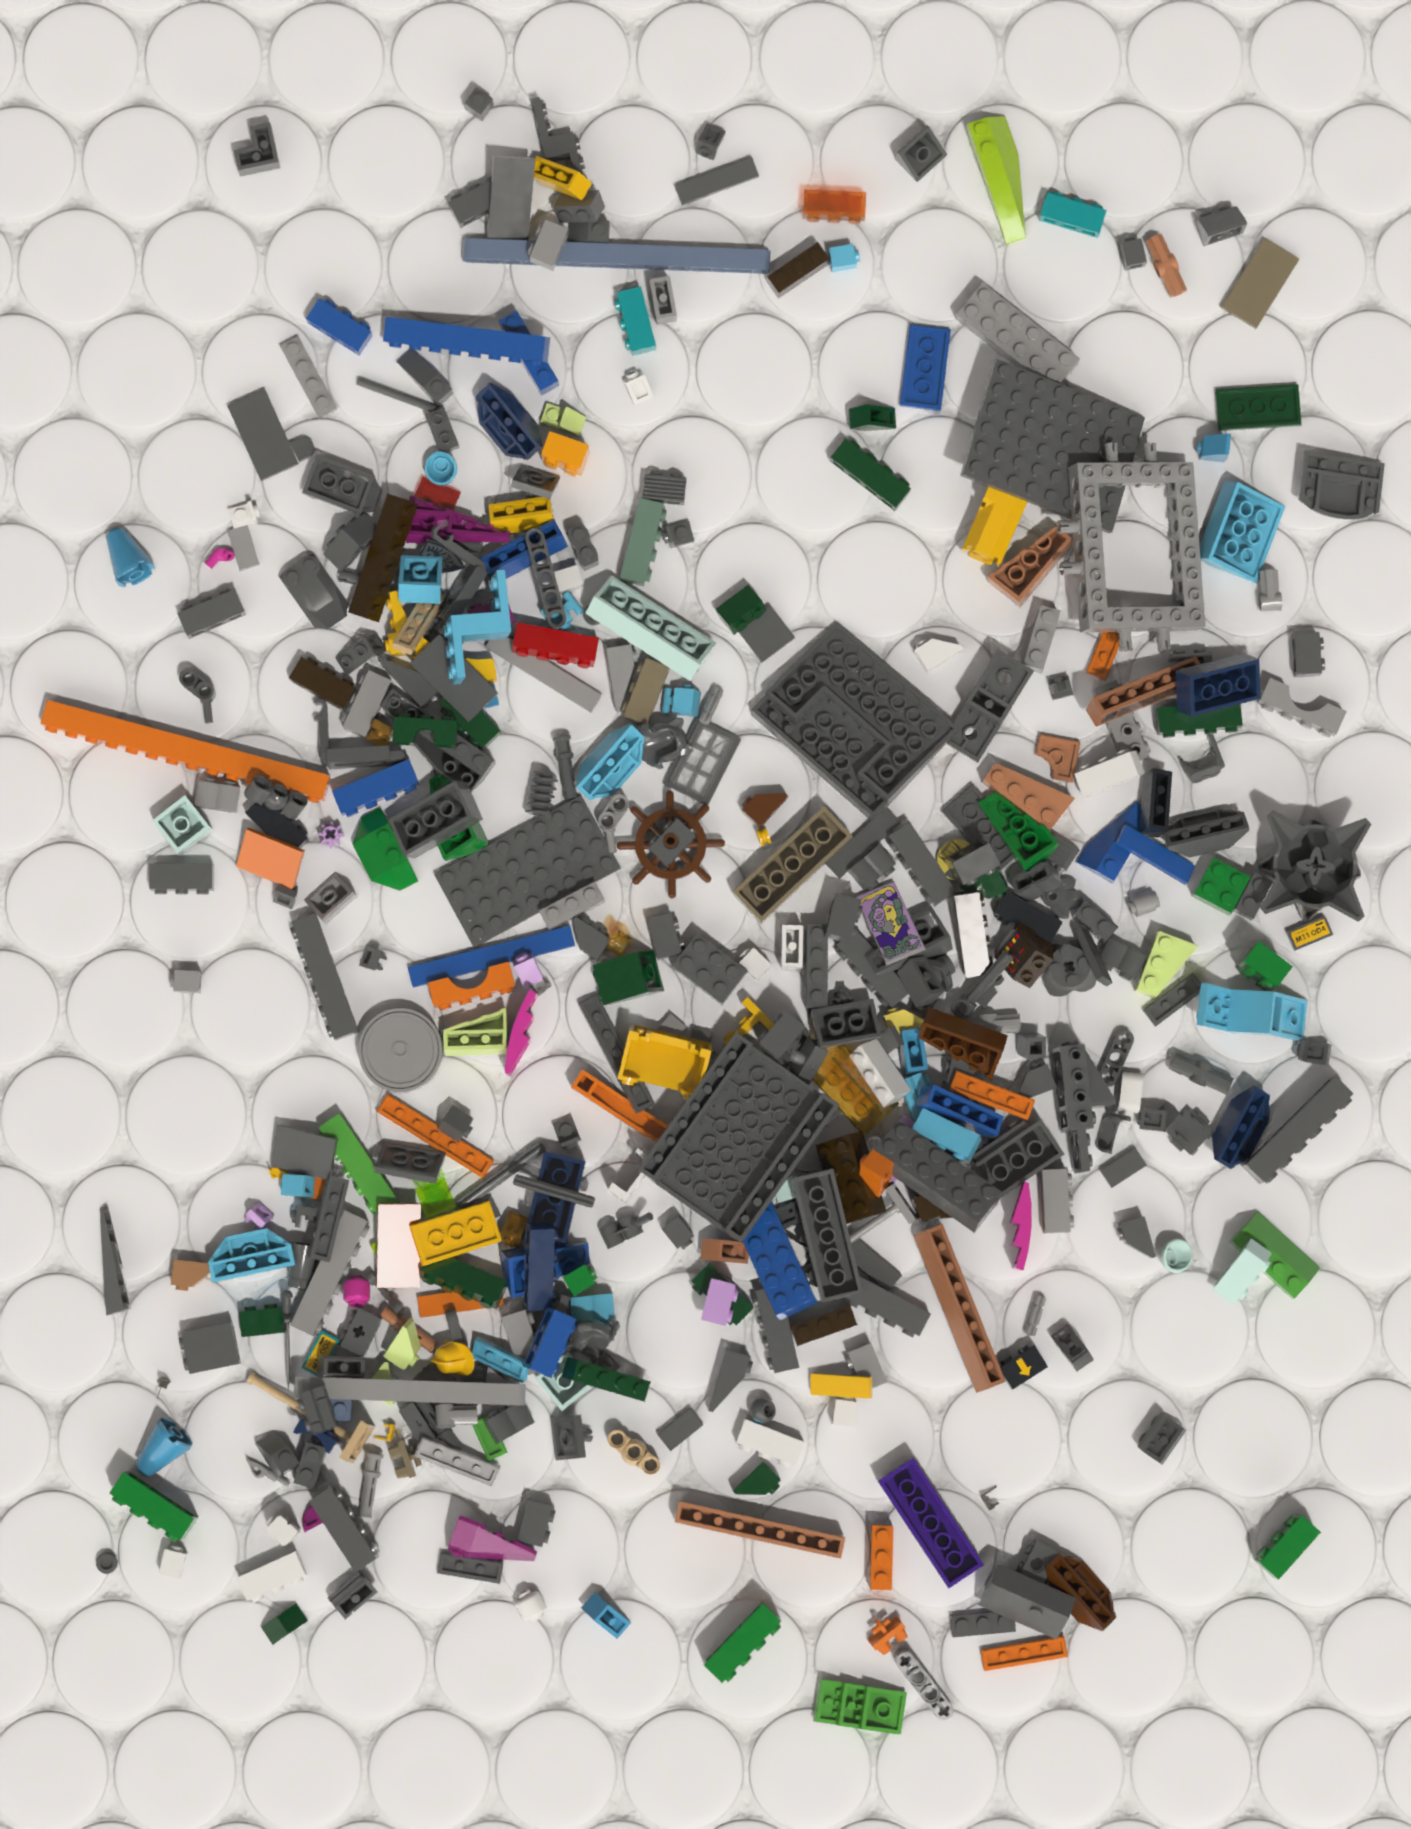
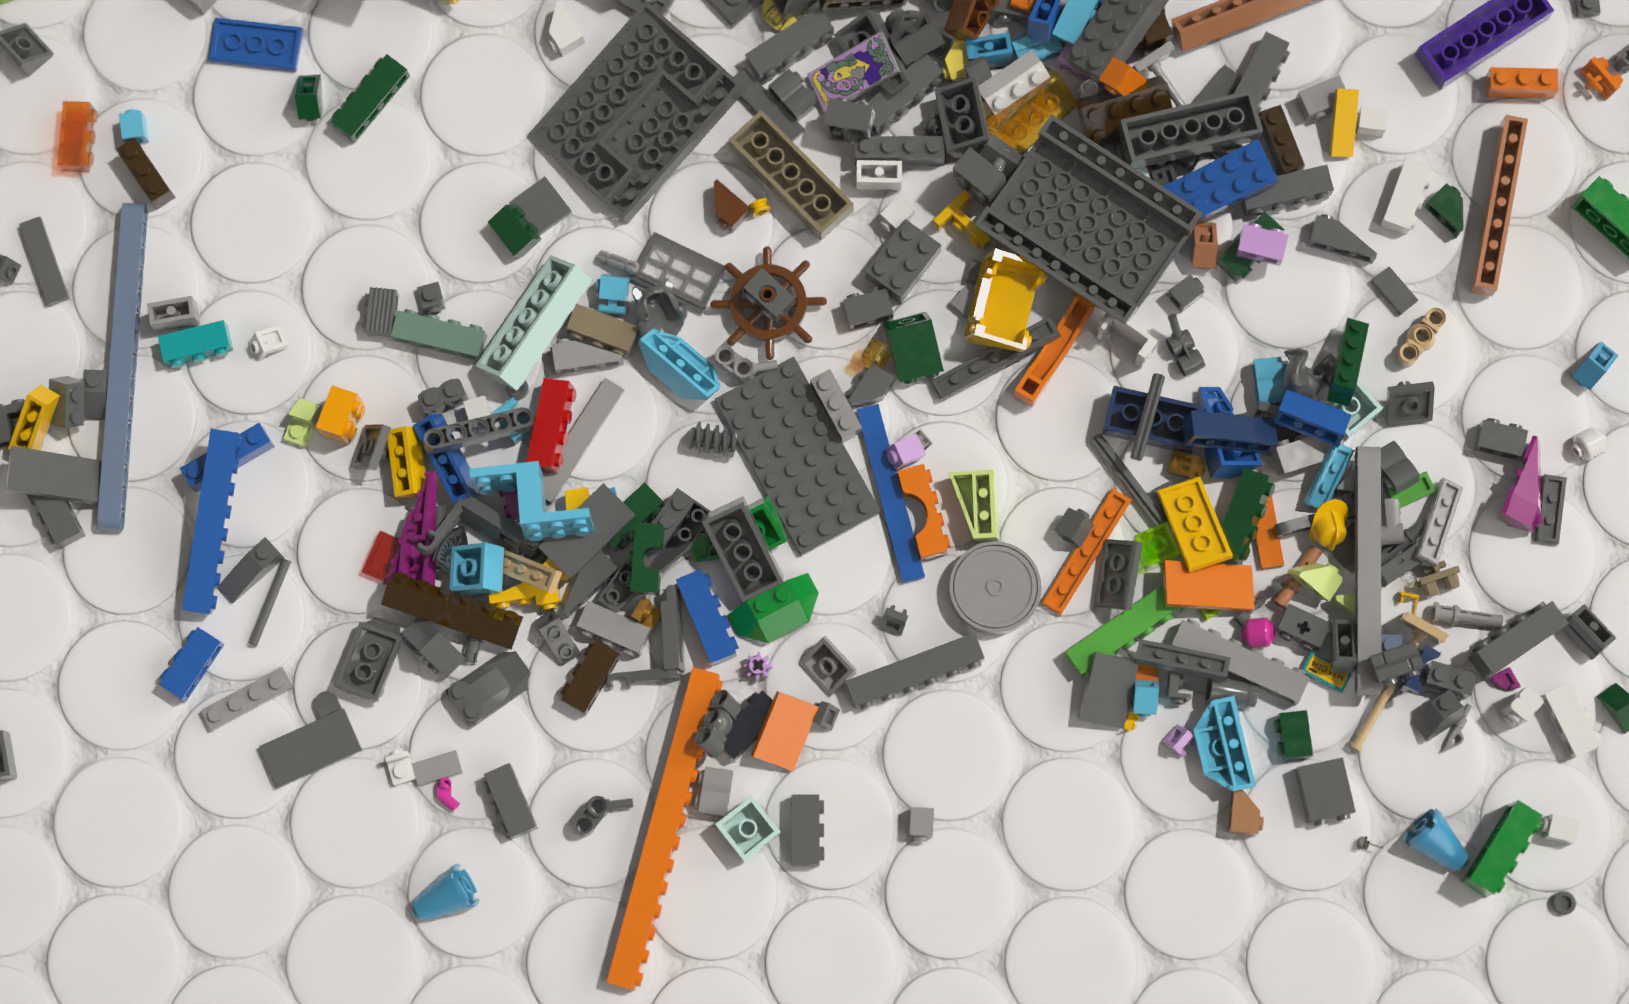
camera: 85 degrees left, 5 degrees down
(115, 1290) = (1262, 896): dark grey wedge -> none
(286, 1299) = (1291, 706): dark grey sword -> none
(441, 468) = (353, 550): medium azure piece -> none
(442, 430) = (311, 551): dark grey piece -> none
(508, 422) = (305, 478): dark blue wedge -> none
(518, 1041) = (970, 458): dark pink slope -> none
(548, 244) = (107, 432): light grey brick -> none
(565, 758) = (673, 416): dark grey pin -> none
(567, 1133) = (1082, 410): dark grey bracket -> none
(580, 1279) = (1242, 388): green brick -> none
(762, 1410) = (1372, 204): dark grey piece -> none

